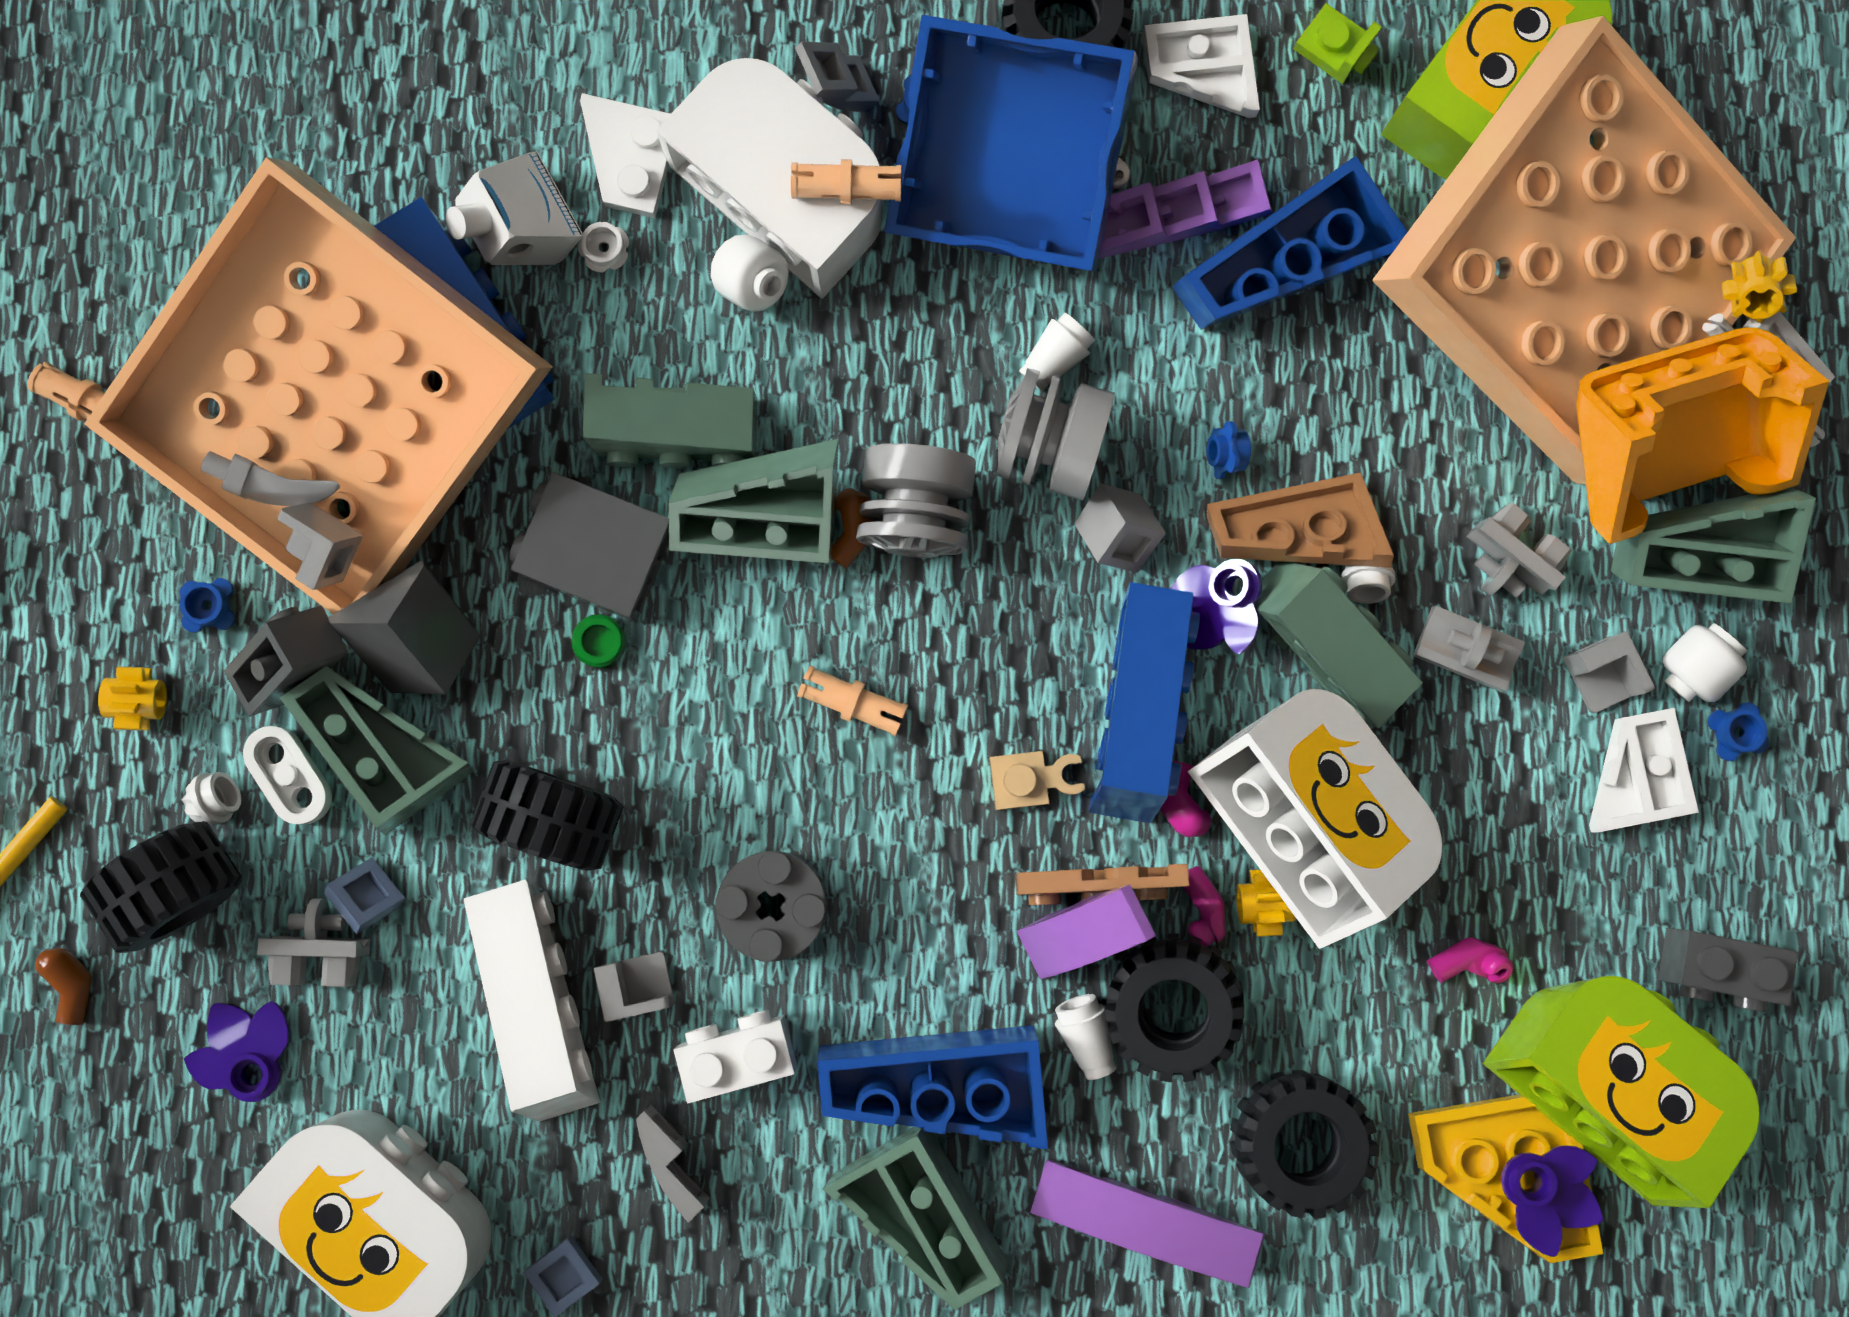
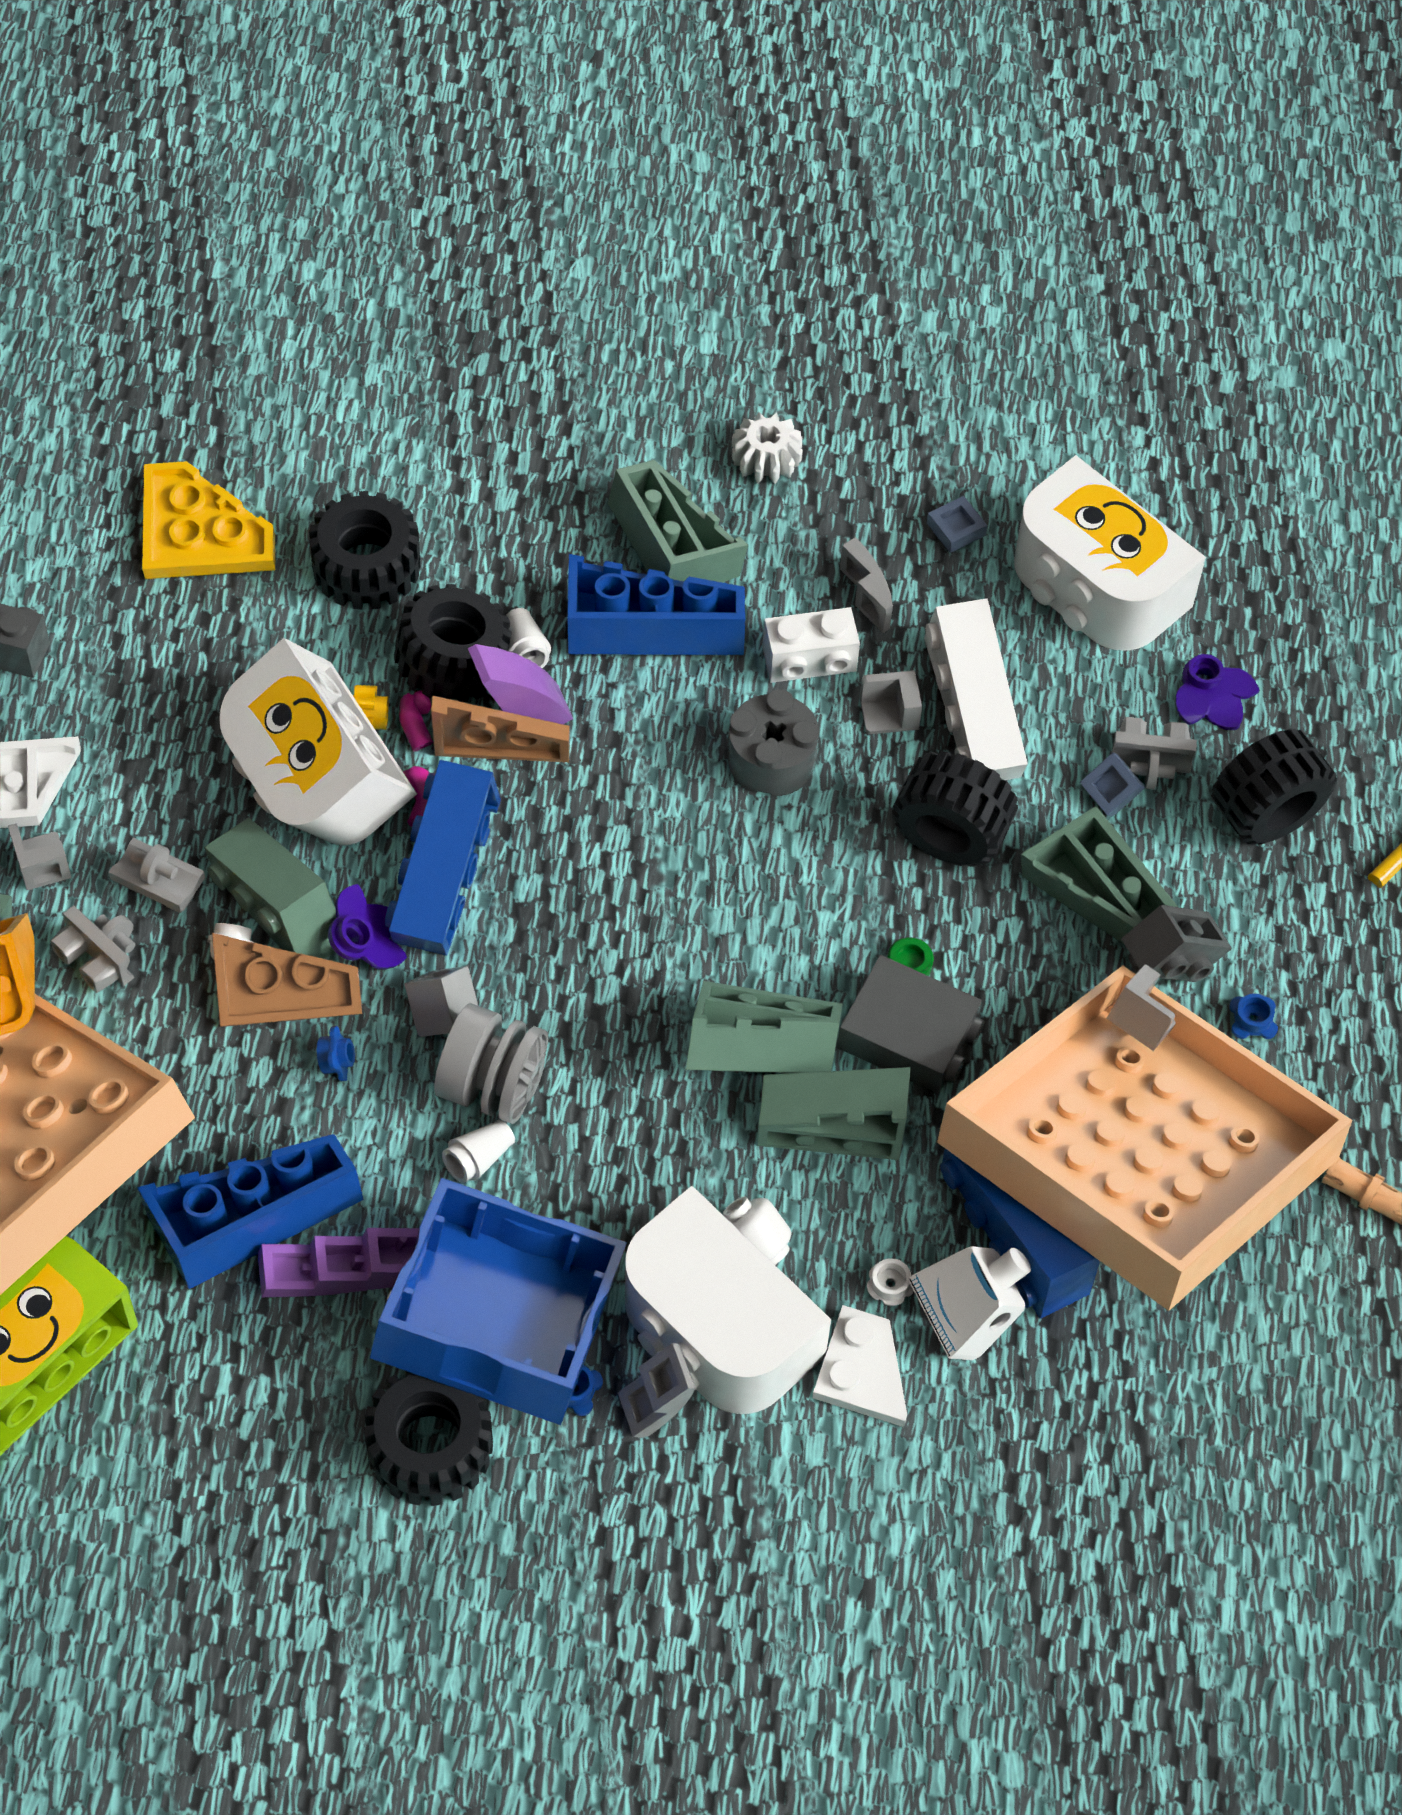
camera: 175 degrees left, 25 degrees down
(69, 979) = (1357, 753): dark orange arm -> none
(132, 698) = (1312, 942): yellow gear -> none
(212, 798) = (1242, 866): white plate -> none
(258, 484) = (1208, 1068): light grey bar -> none
(286, 778) = (1184, 878): white plate -> none
(409, 633) = (1067, 960): dark grey slope -> none
(846, 181) = (658, 1246): light nougat pin -> none
(847, 547) = (675, 1029): dark orange arm -> none
(852, 700) = (692, 893): light nougat pin -> none
(917, 490) = (618, 1016): light grey wheel -> none
(1024, 779) = (550, 824): tan plate -> none
(1148, 1223) = (494, 511): medium lavender slope -> none
(1205, 61) = (298, 1398): white wing -> none
(1338, 44) = (163, 1403): lime bracket -> none
(1473, 956) = (200, 669): dark pink arm -> none
(1555, 1198) = (172, 499): dark purple plate -> none
(1632, 1086) = (104, 555): lime brick -> none

